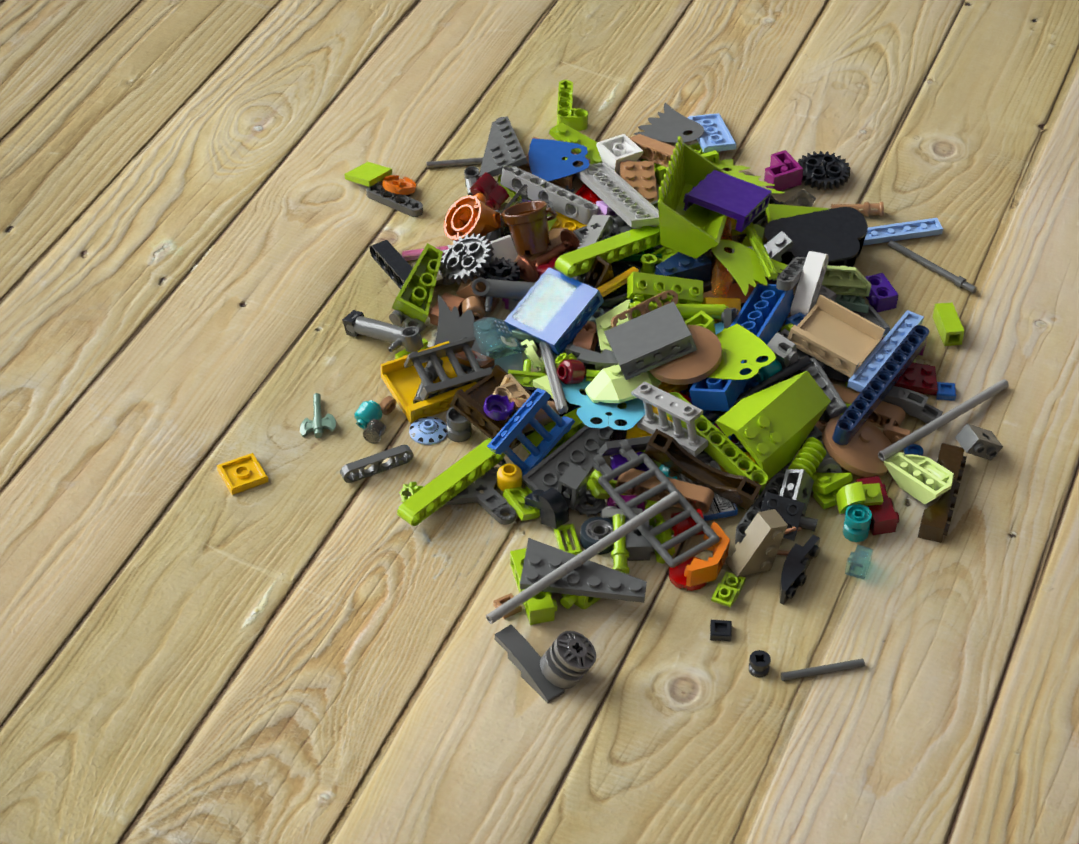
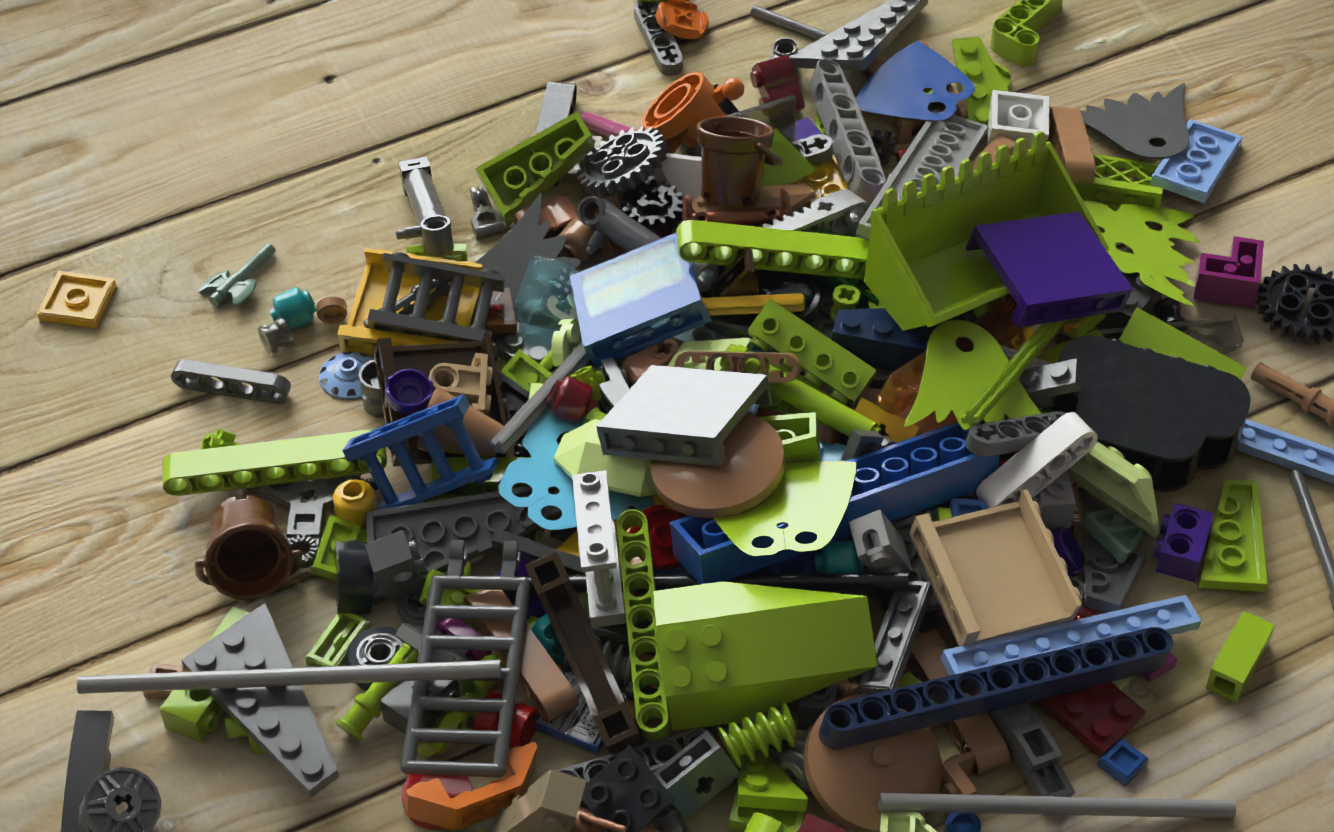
camera: 40 degrees right, 5 degrees up
(490, 521) = (247, 551): none -> reddish brown piece
(906, 286) = (1236, 544): none -> lime wing

